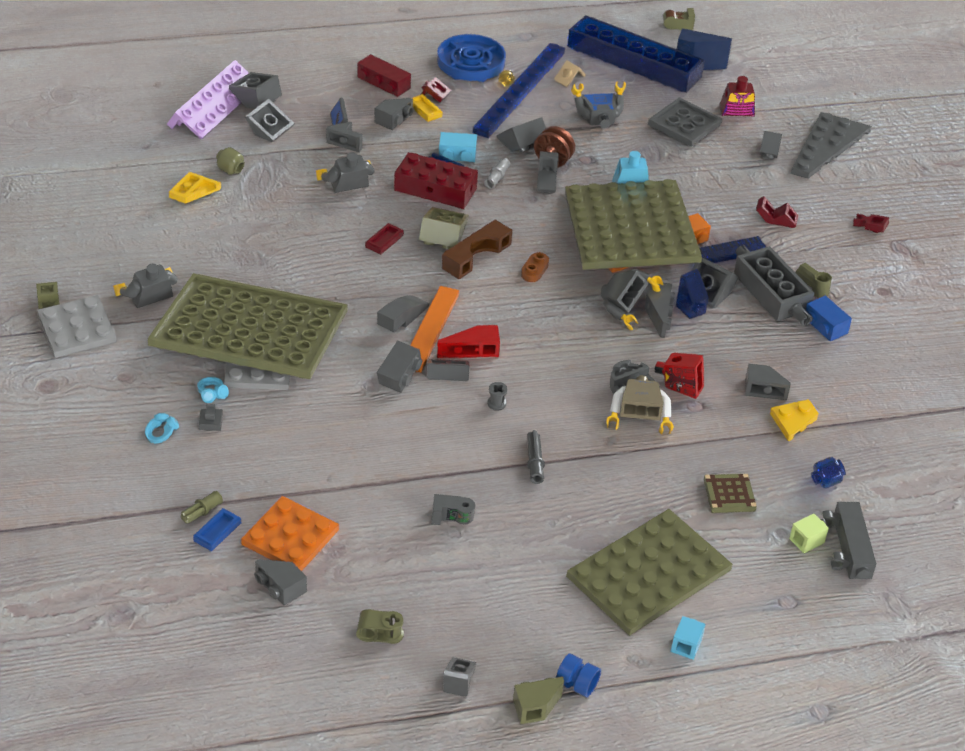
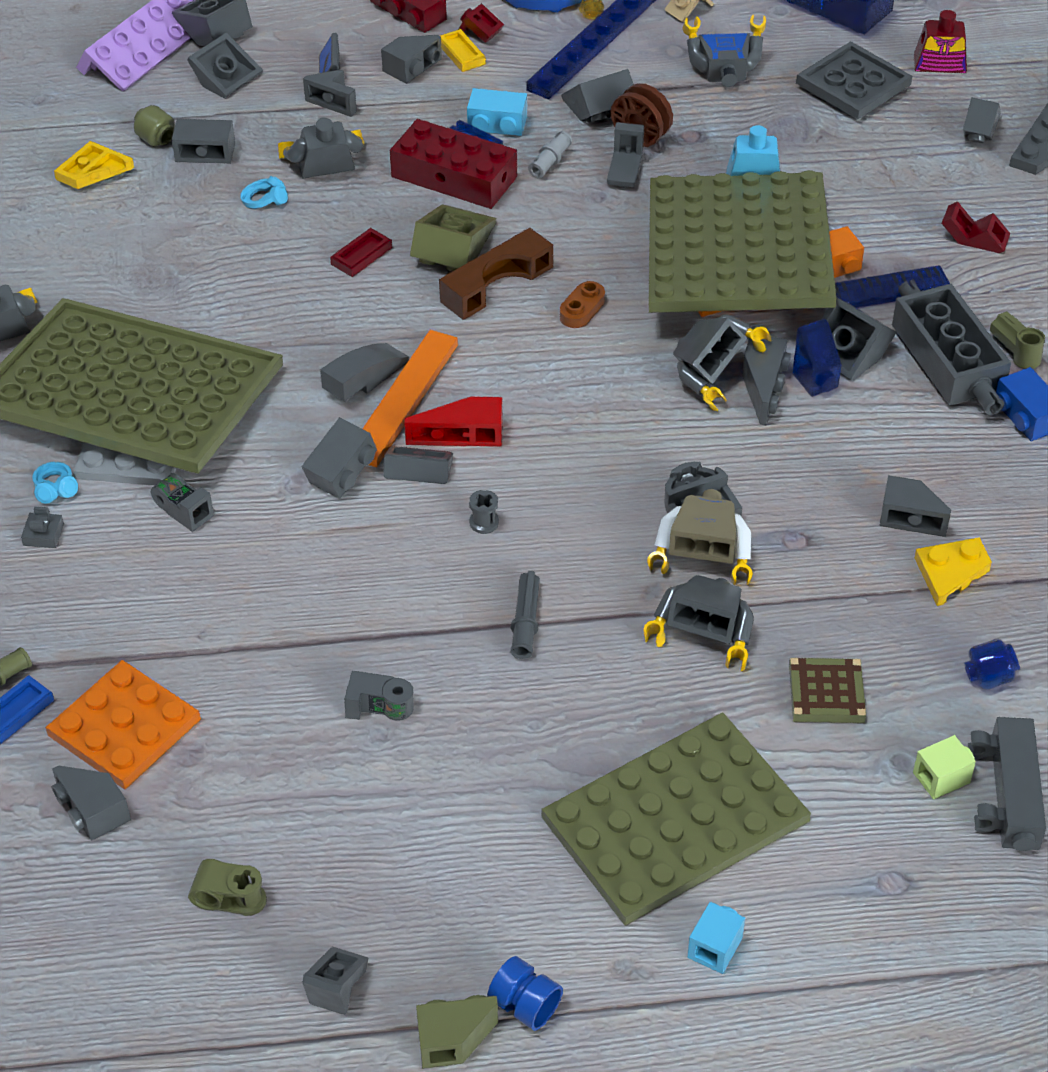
camera: 10 degrees right, 5 degrees up
(265, 170) = (203, 141): none -> dark grey brick
(300, 397) = (181, 499): none -> dark grey leg
(321, 202) = (277, 193): none -> medium azure piece
(650, 448) = (706, 609): none -> dark grey torso
(683, 373) = (781, 487): red torso -> none

